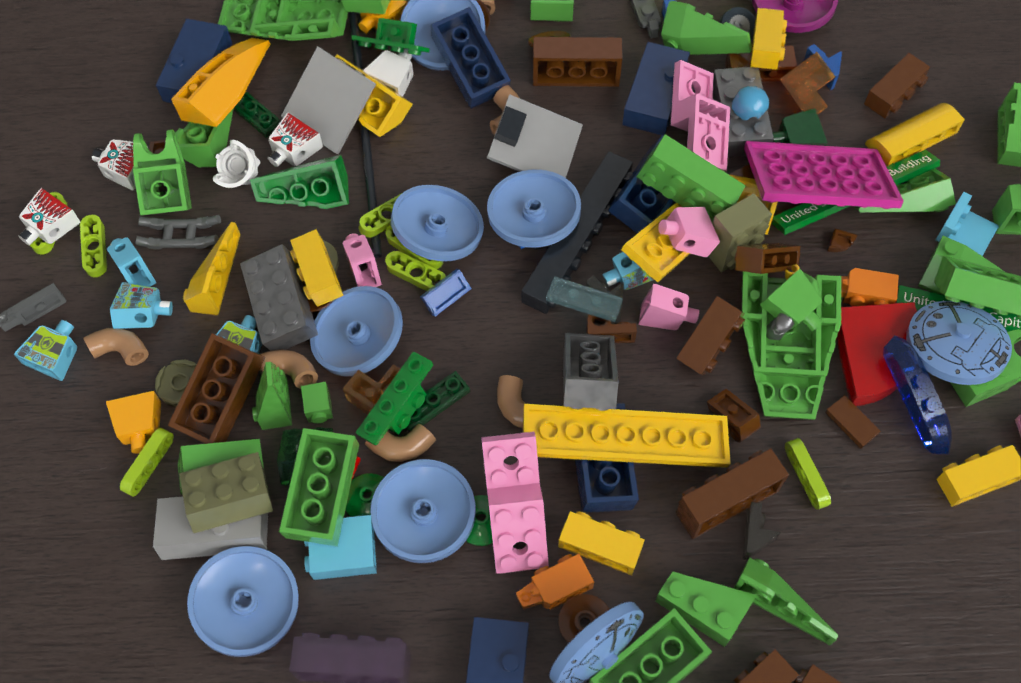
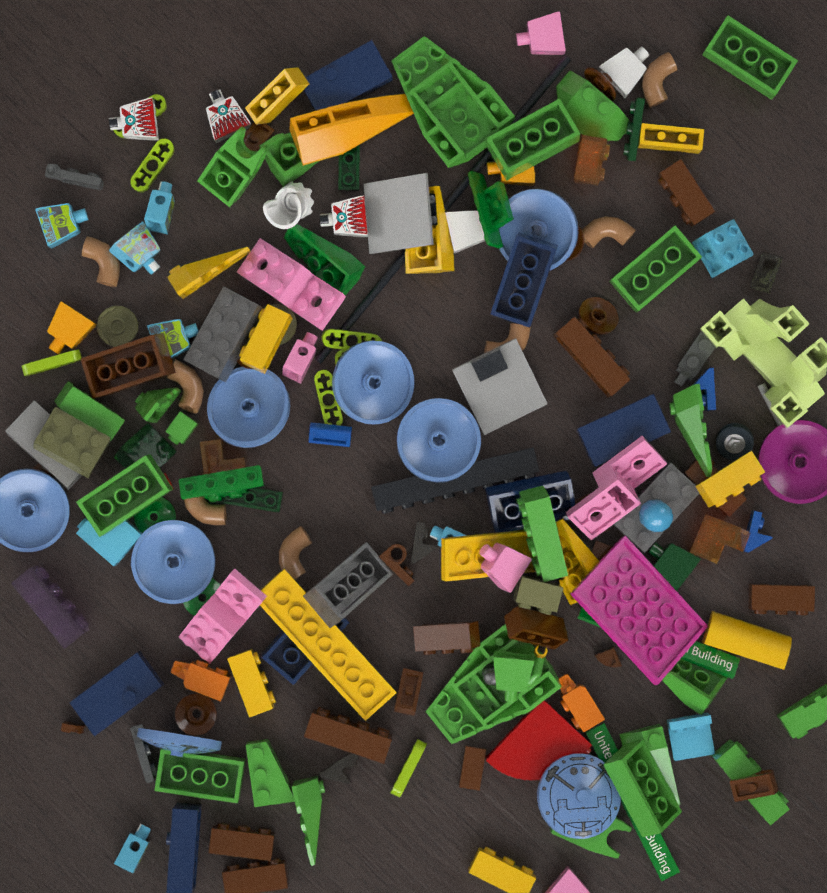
camera: 45 degrees right, 25 degrees up
(147, 104) = (277, 95): none -> yellow brick
(167, 226) = (214, 225): dark grey piece -> none
(293, 214) = (291, 284): none -> bright pink bracket
(584, 299) = (400, 534): clear light blue tile -> none
(666, 309) = (441, 588): bright pink torso -> none
(919, 395) = (520, 797): clear blue brick -> none

